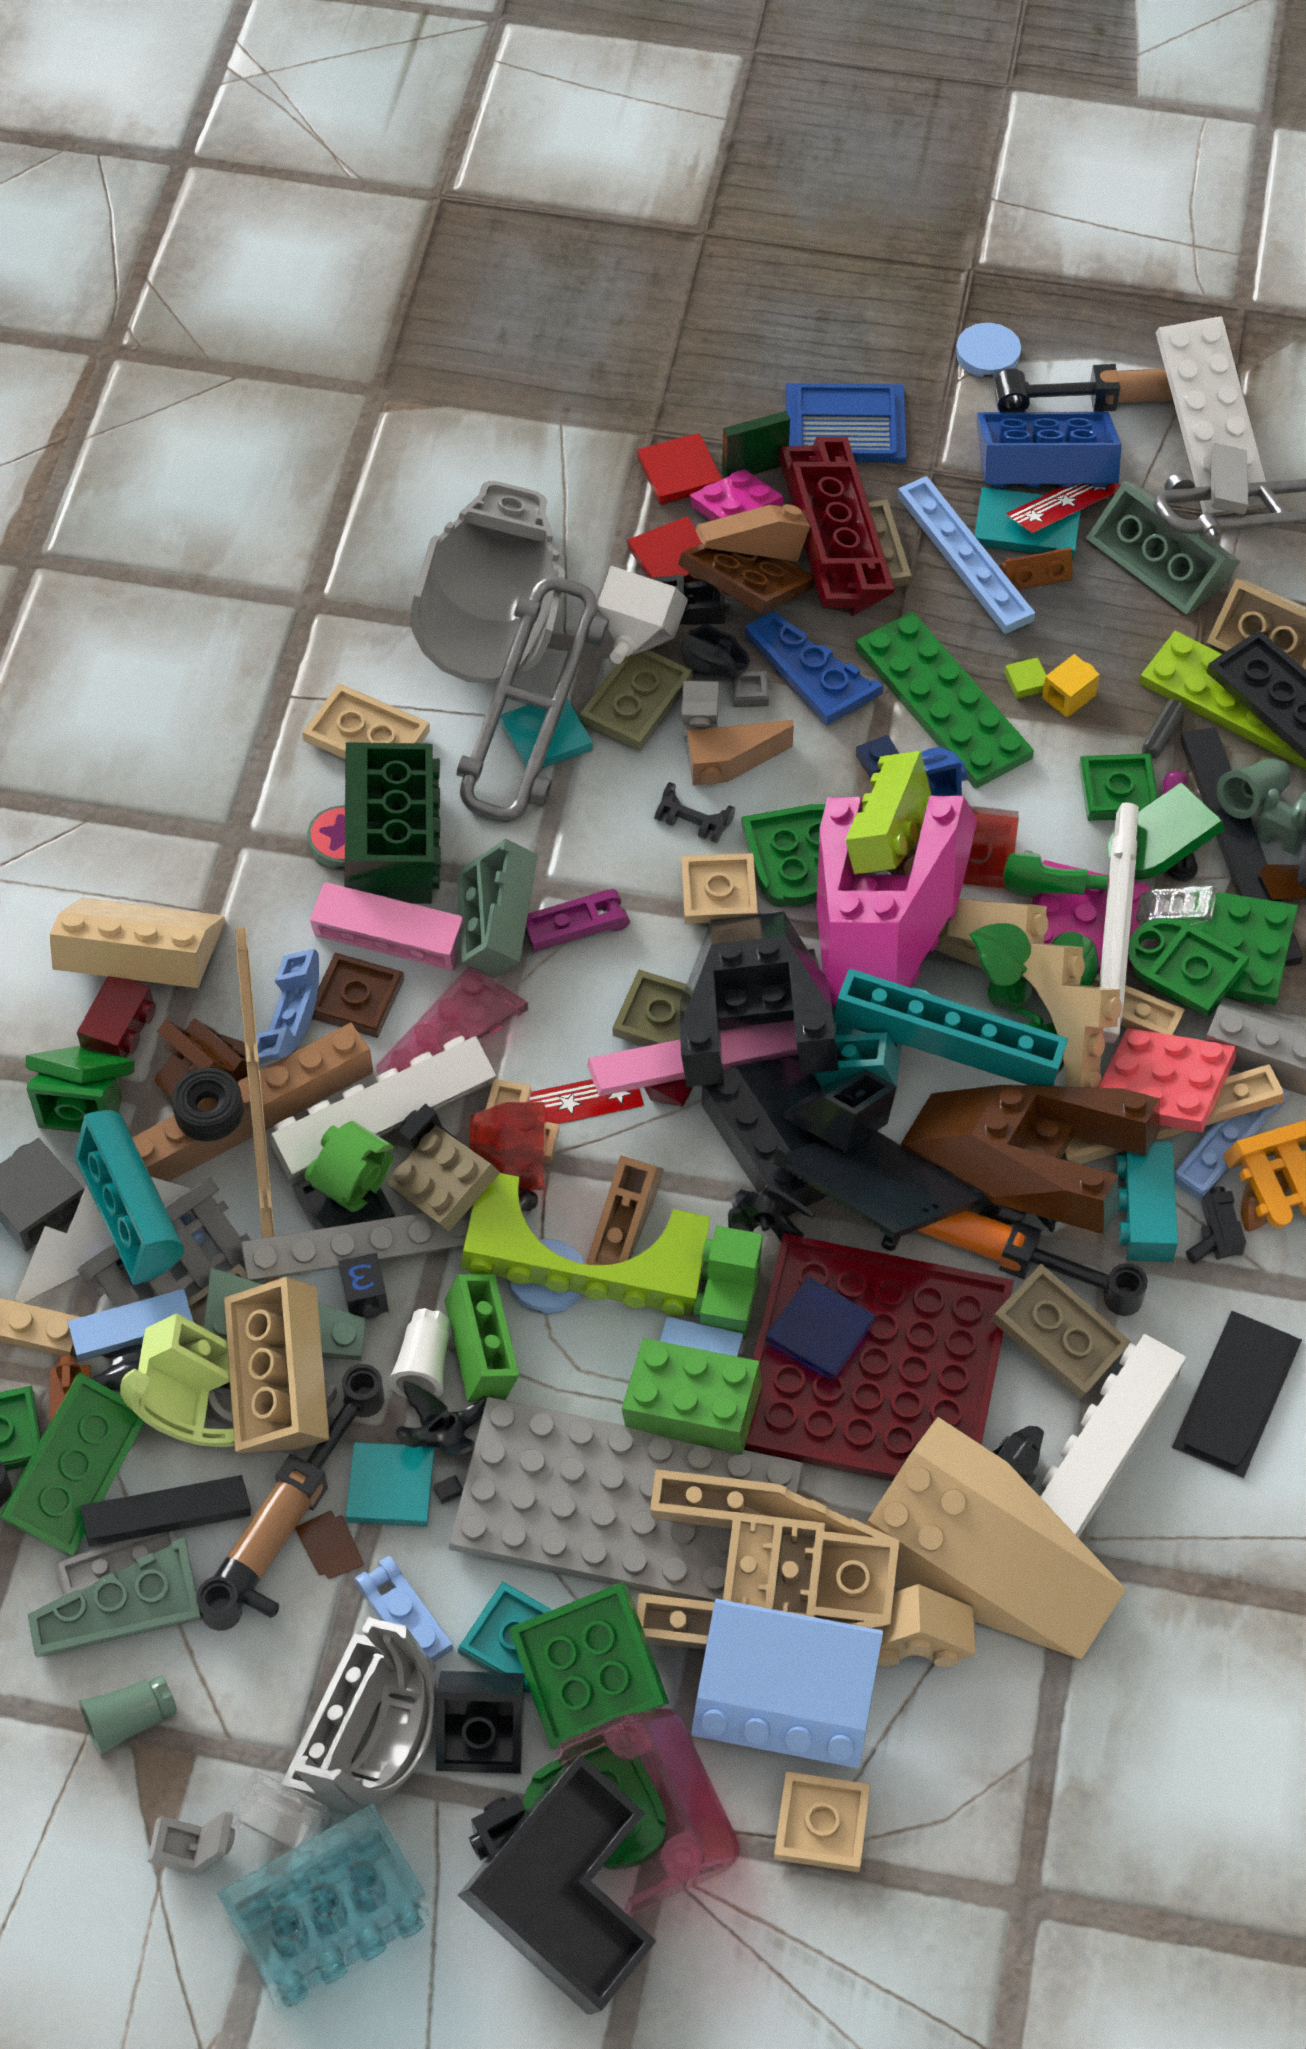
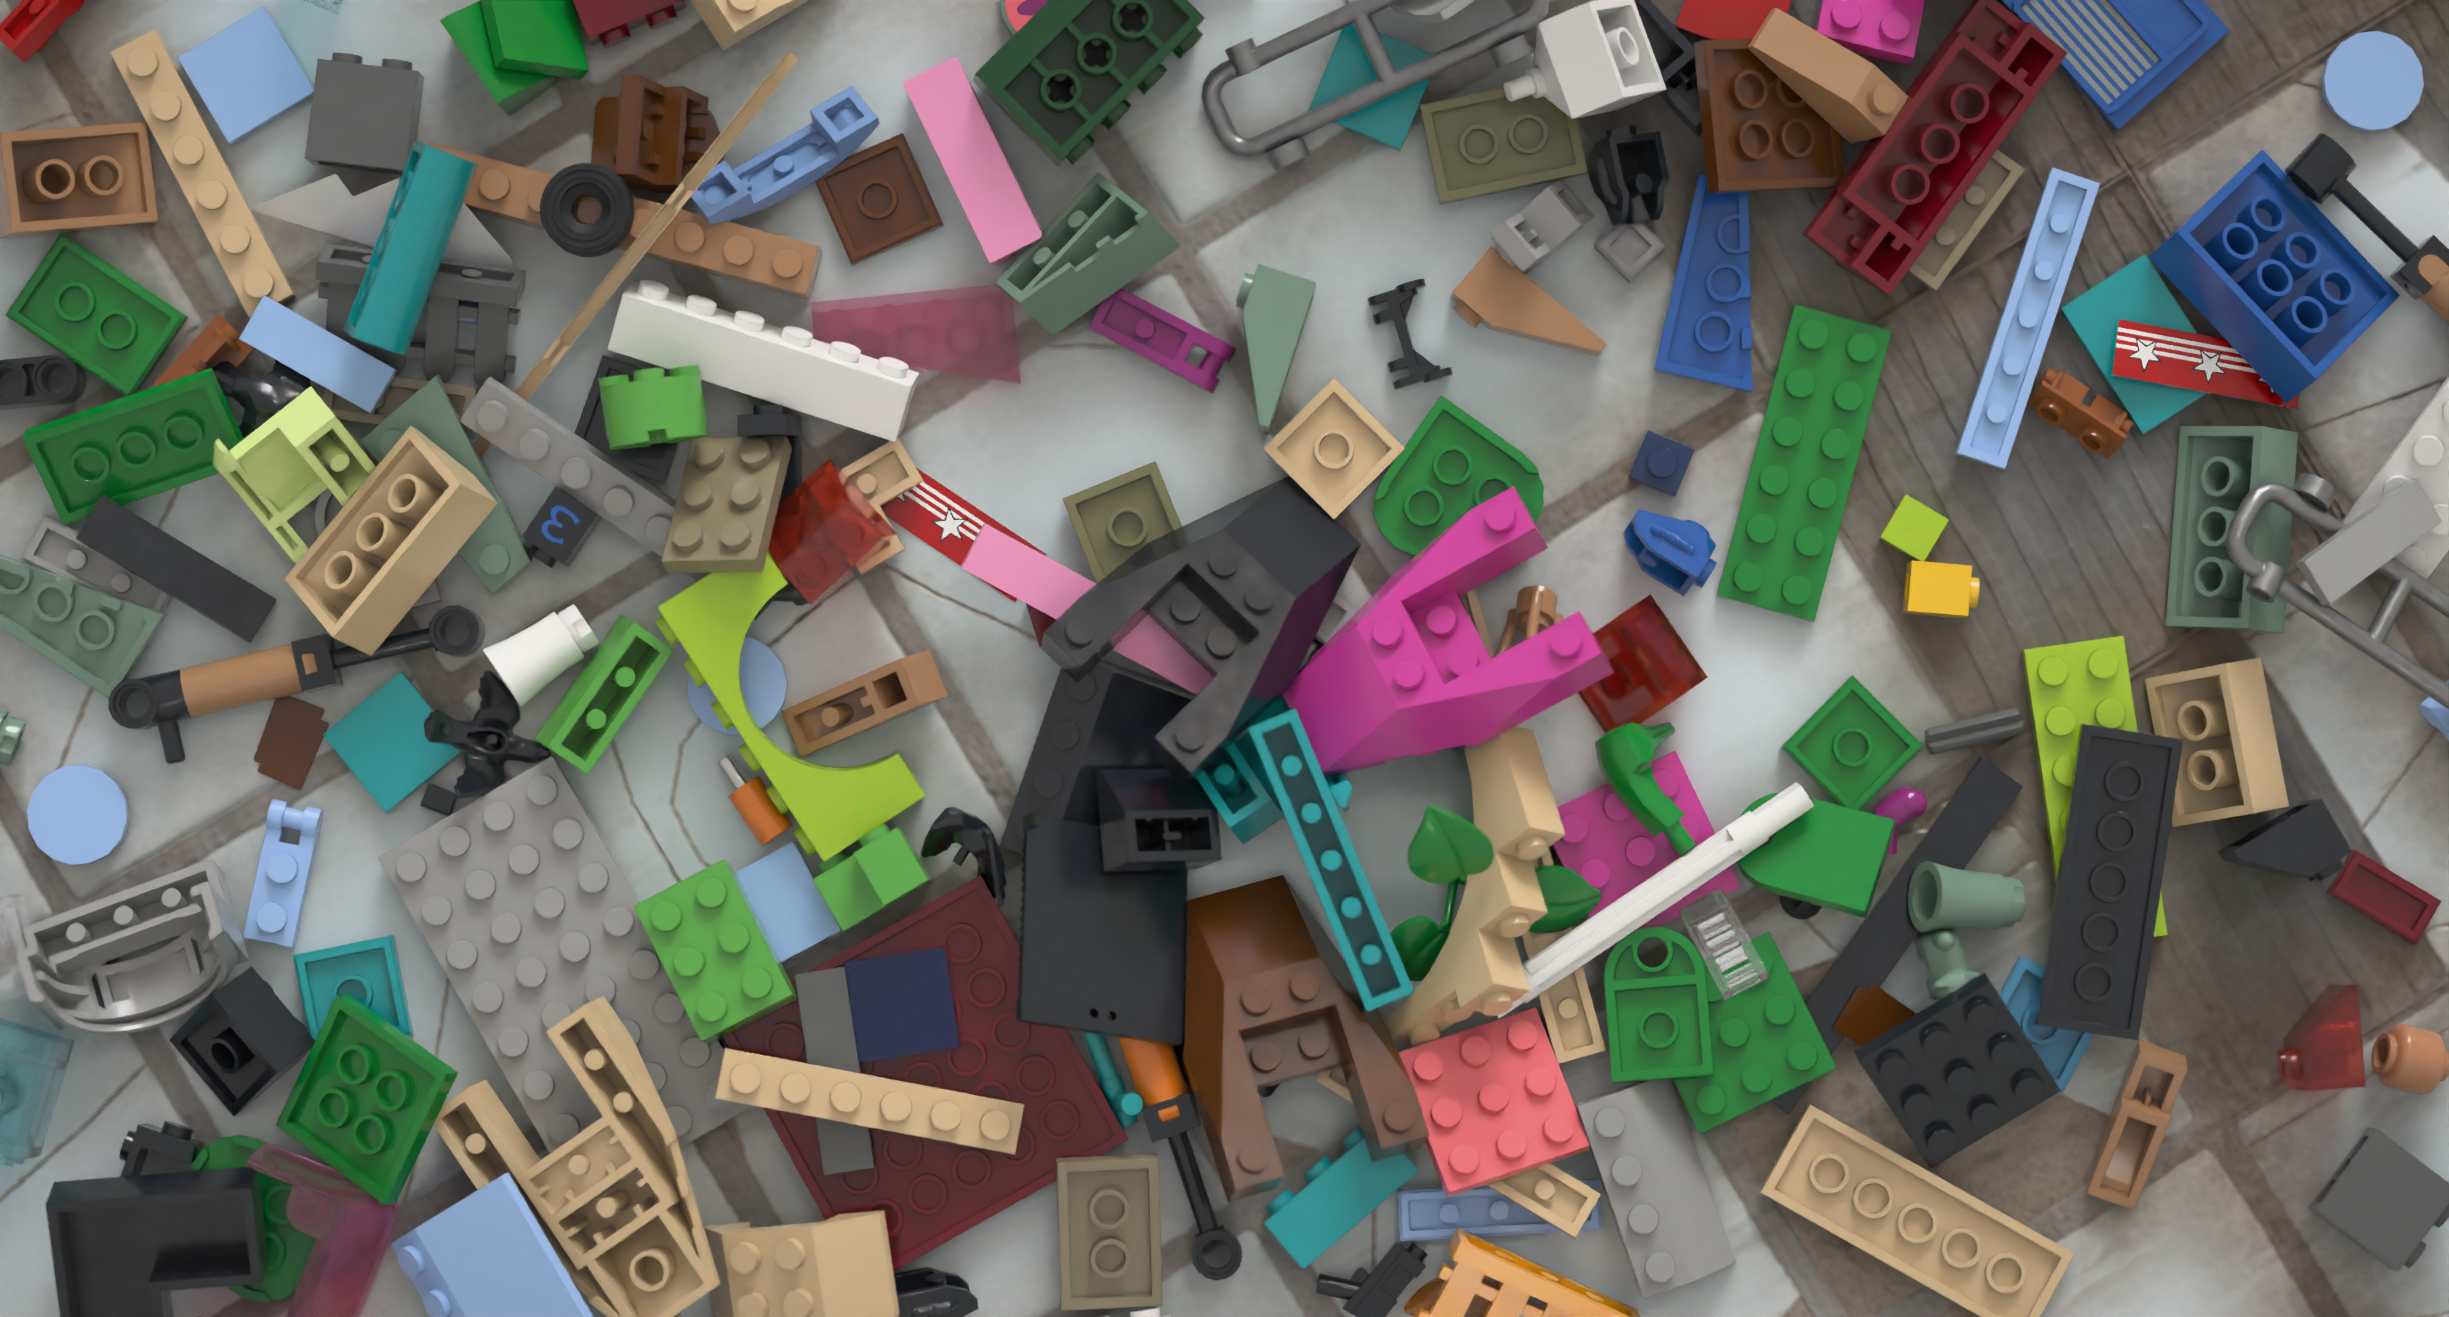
camera: 50 degrees right, 30 degrees up
(247, 1701) = (78, 814): none -> light blue tile
(624, 1319) = (754, 803): none -> orange piece
(631, 860) = (1273, 321): none -> sand green slope
(827, 1396) = (833, 1044): none -> dark grey tile
(860, 1385) = (869, 1101): none -> tan plate
(890, 814) = (1550, 573): lime wedge -> none
(915, 1245) = (1123, 1104): none -> teal piece

